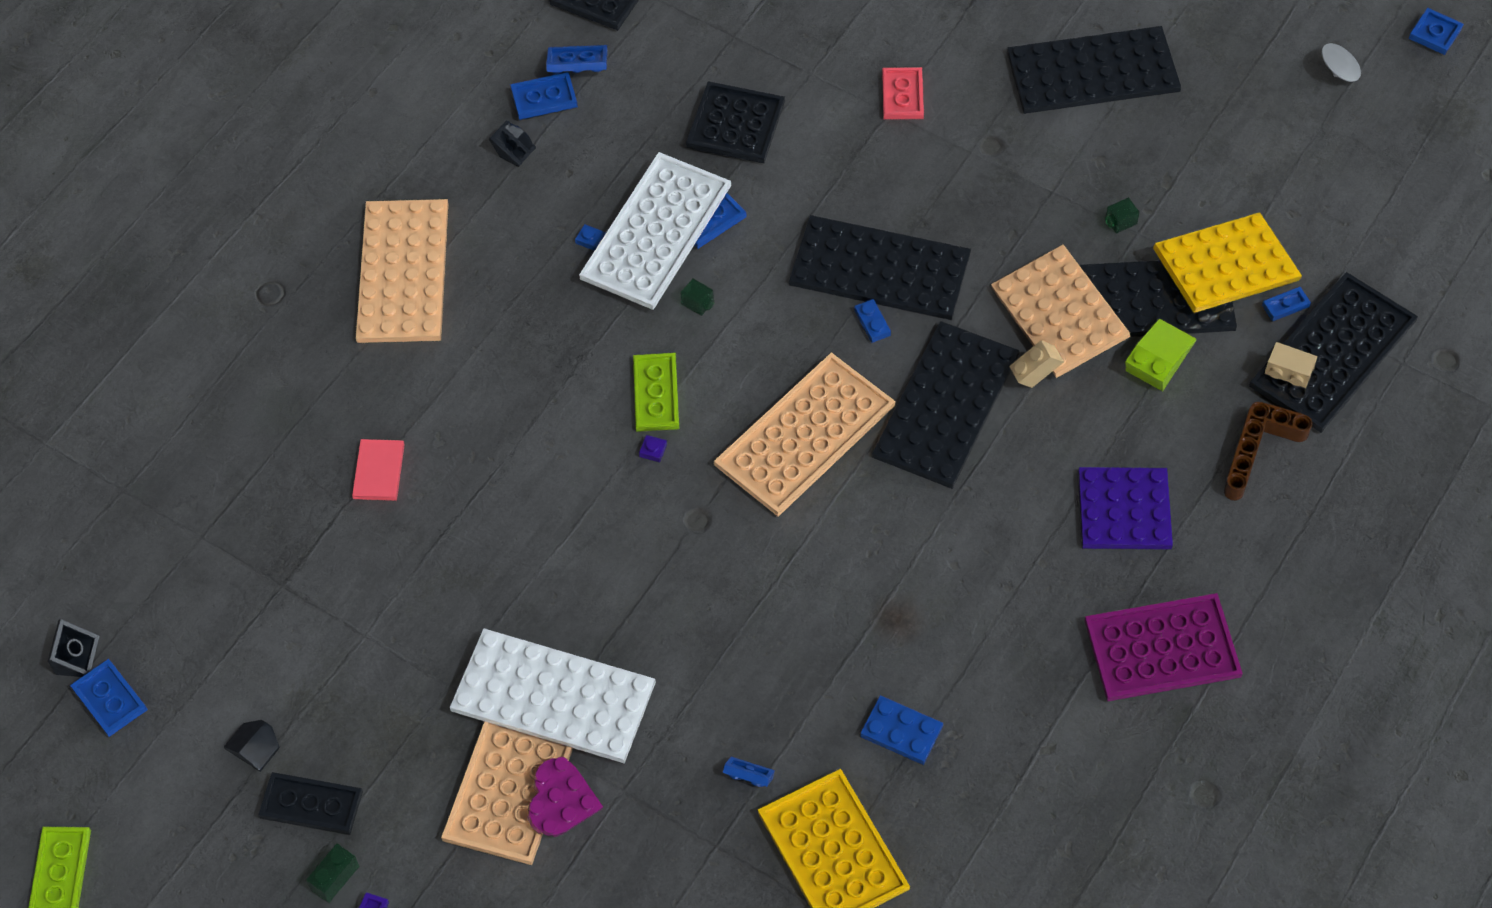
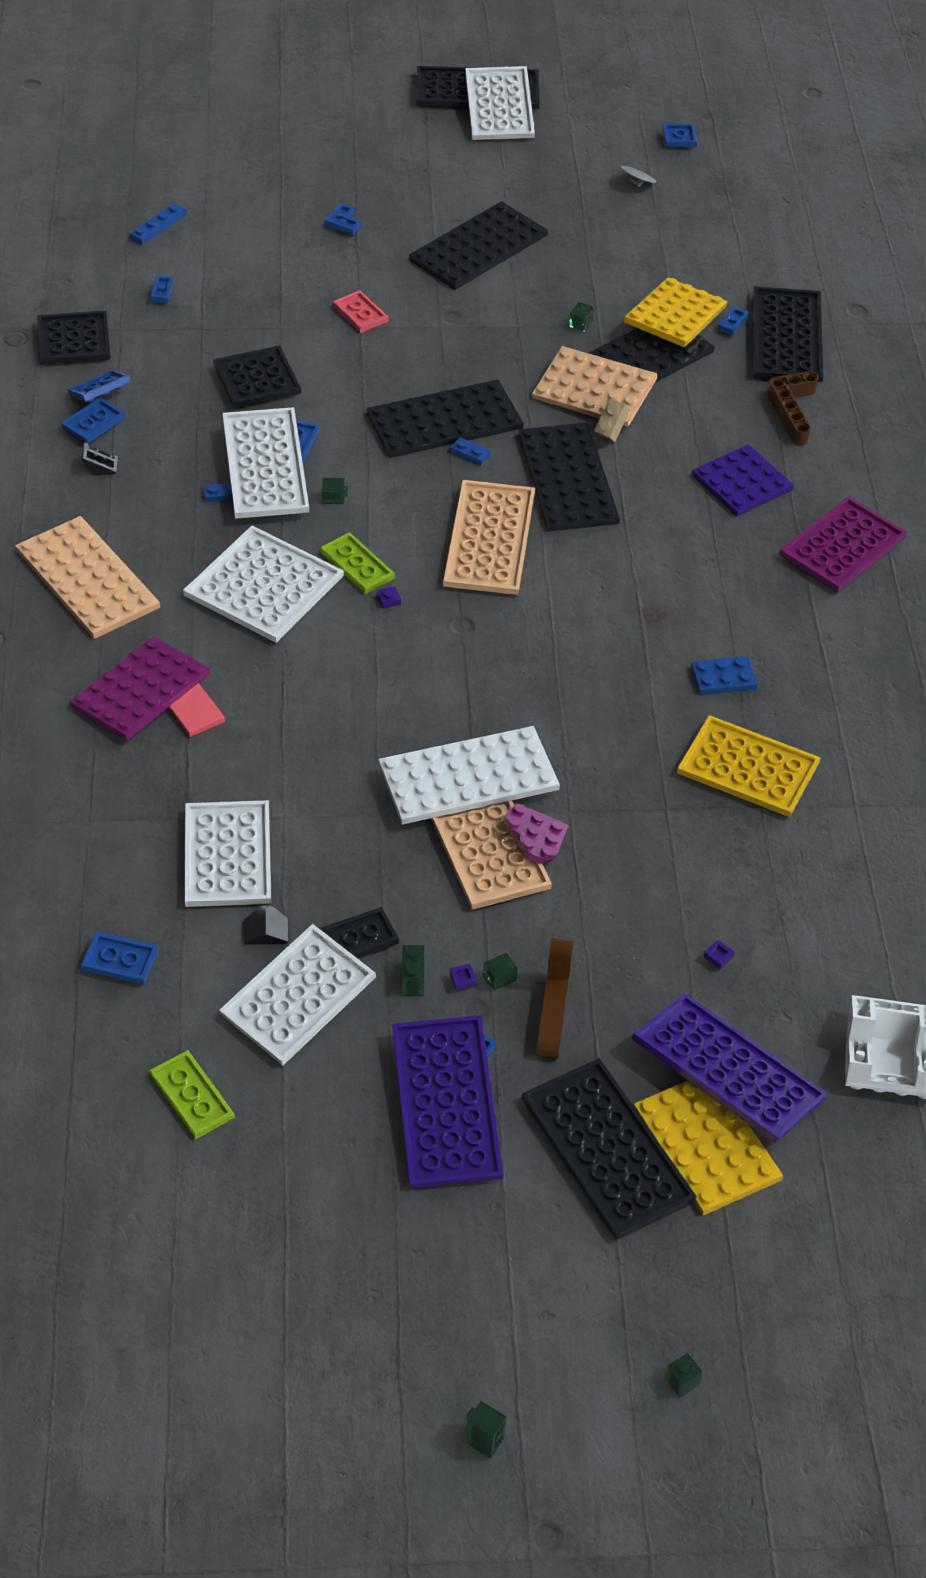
camera: 40 degrees left, 10 degrees down
(72, 650) = (59, 943): black slope -> none
(216, 833) = (297, 994): none -> white plate
(281, 645) = (227, 853): none -> white plate
(349, 420) = (139, 687): none -> magenta plate
(549, 368) = (263, 583): none -> white plate
(741, 769) = (656, 750): blue plate -> none
(1159, 354) = (683, 383): lime slope -> none
(1290, 365) = (773, 348): tan brick -> none

